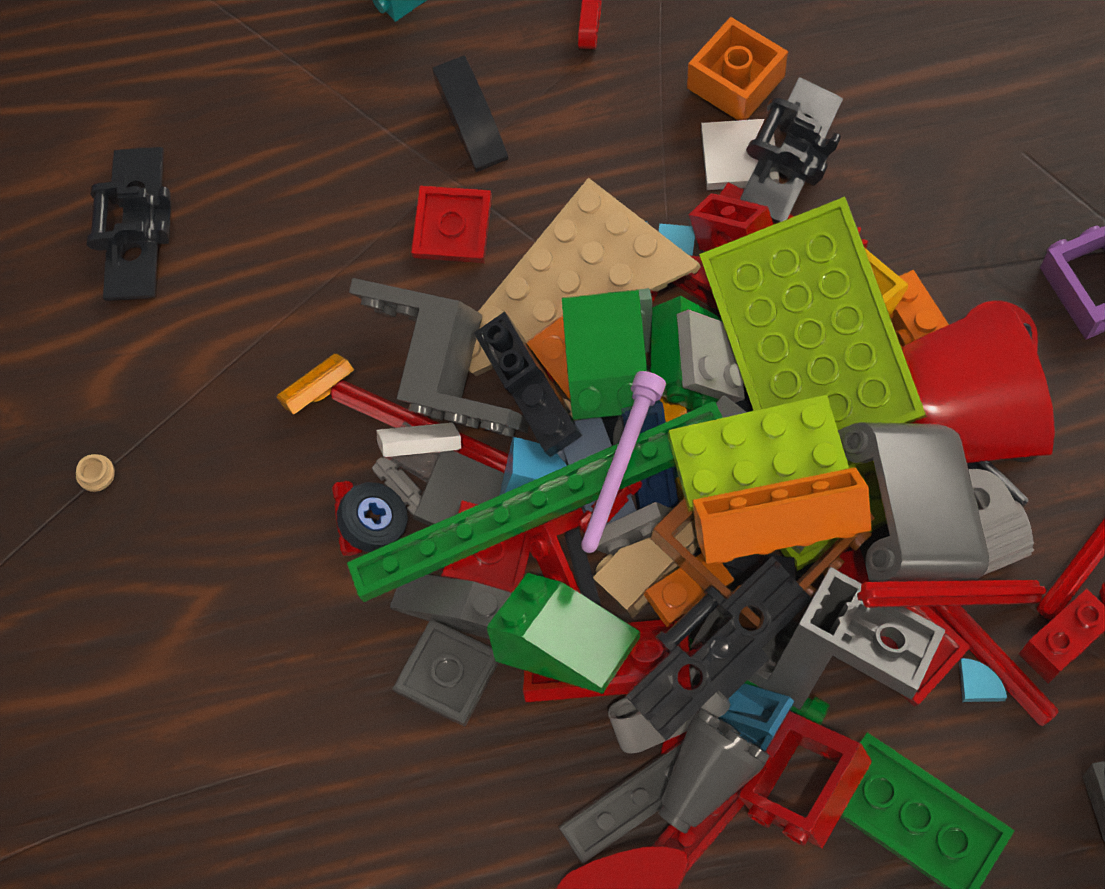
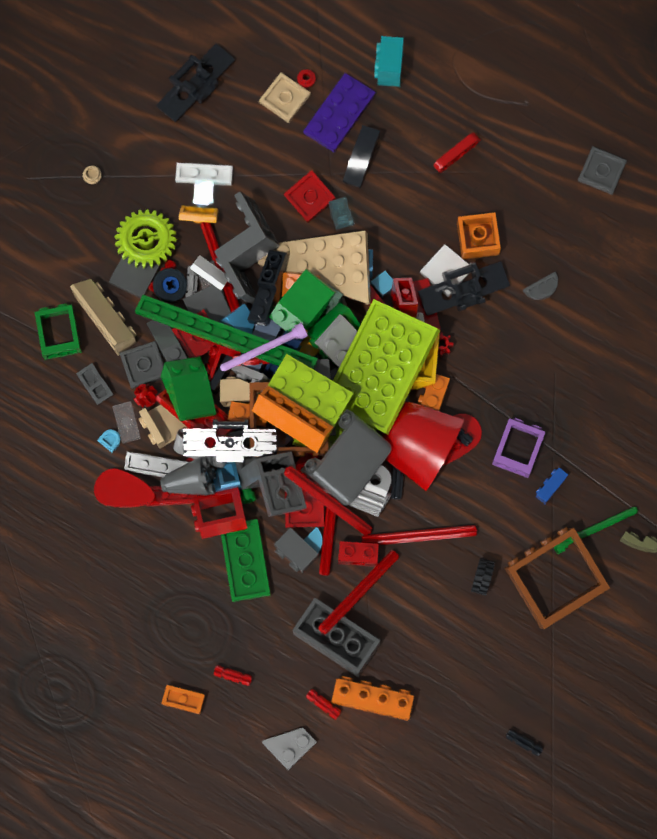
camera: 40 degrees right, 10 degrees up
(267, 327) = (217, 173): none -> white tile
(268, 485) = (147, 255): none -> lime gear
(283, 137) = (284, 97): none -> tan tile
(292, 96) = (306, 83): none -> red plate
(293, 349) = (203, 193): none -> clear light blue bracket
(295, 769) = (61, 349): none -> green window
(300, 554) = (133, 279): none -> dark grey tile
(313, 654) = (103, 315): none -> tan slope
(380, 93) = (339, 112): none -> dark purple plate
(400, 774) = (94, 384): none -> dark grey slope
(500, 712) = (145, 395): none -> red gear
(511, 783) = (126, 422): none -> clear plate
(512, 837) = (110, 440): none -> medium azure tile
(519, 207) = (340, 213): none -> clear light blue bracket
(571, 734) = (161, 425): none -> tan bracket
(886, 67) = (543, 288): none -> dark grey tile
(975, 724) = (296, 551): none -> dark grey brick

